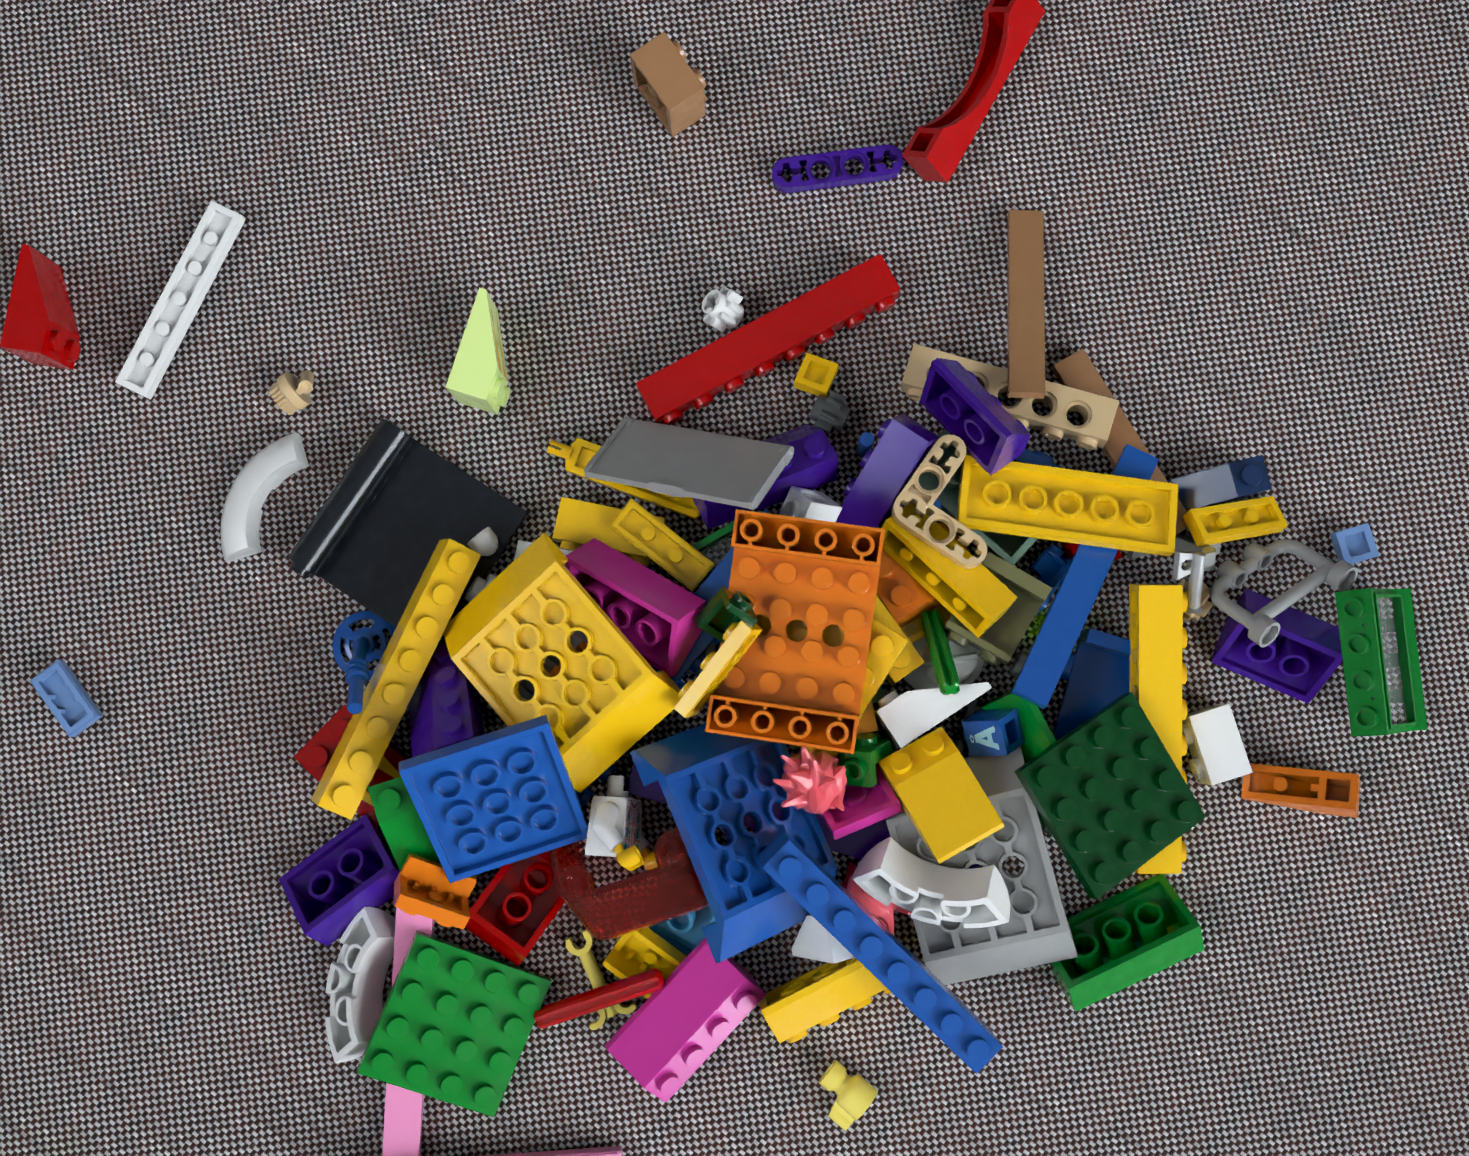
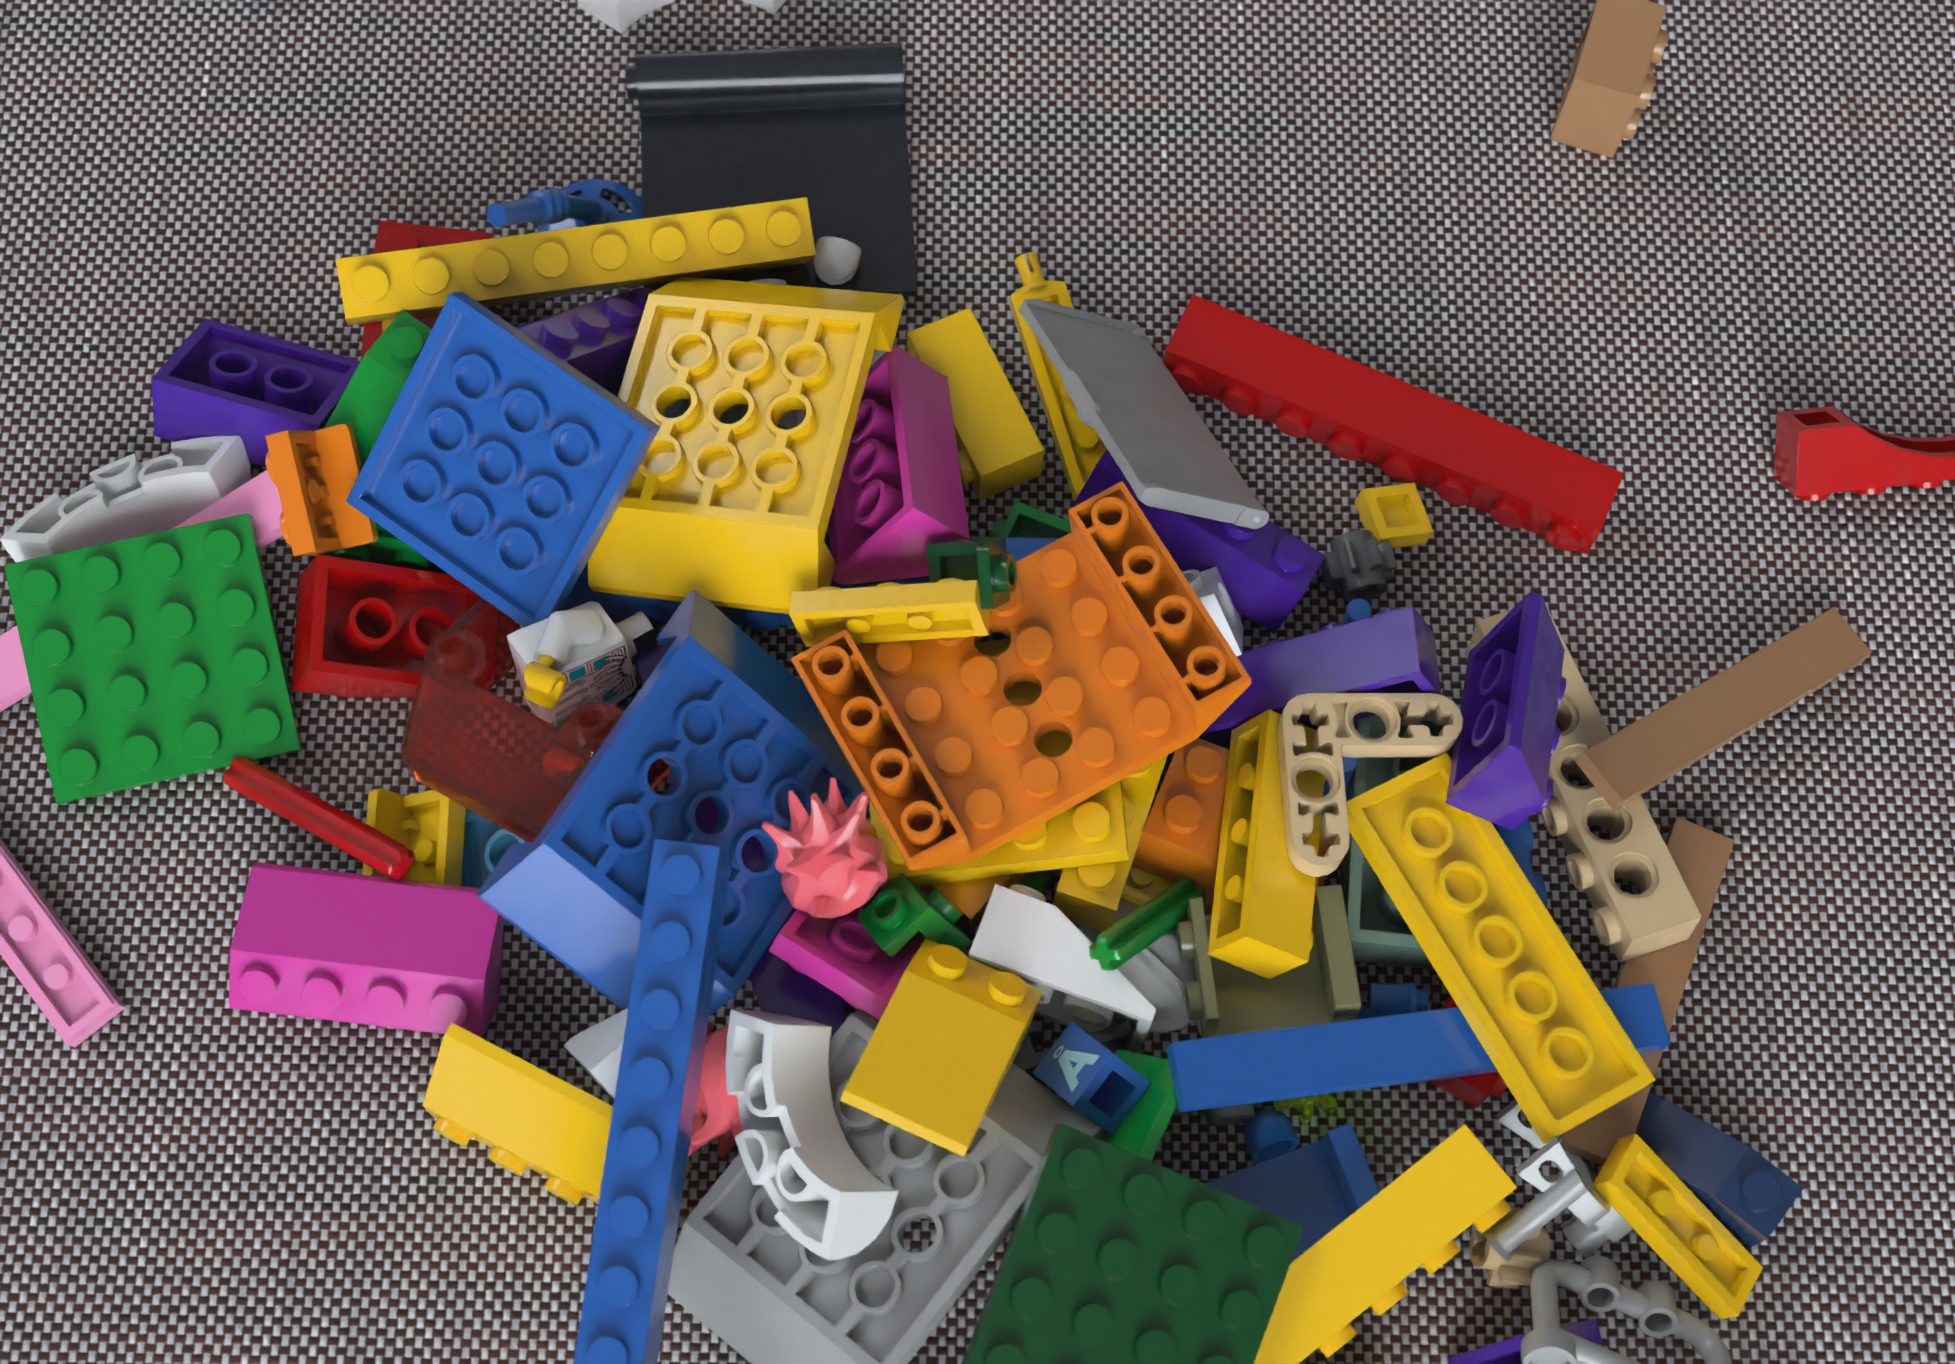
camera: 50 degrees right, 15 degrees down
(480, 366) = (1071, 94): yellowish green slope -> none
(596, 979) = (314, 851): light yellow bar -> none
(662, 545) = (1004, 460): yellow tile -> none
(723, 308) = (1381, 338): white gear -> none
(835, 162) = (1681, 363): dark purple beam -> none
(852, 1093) = (418, 1276): light yellow piece -> none

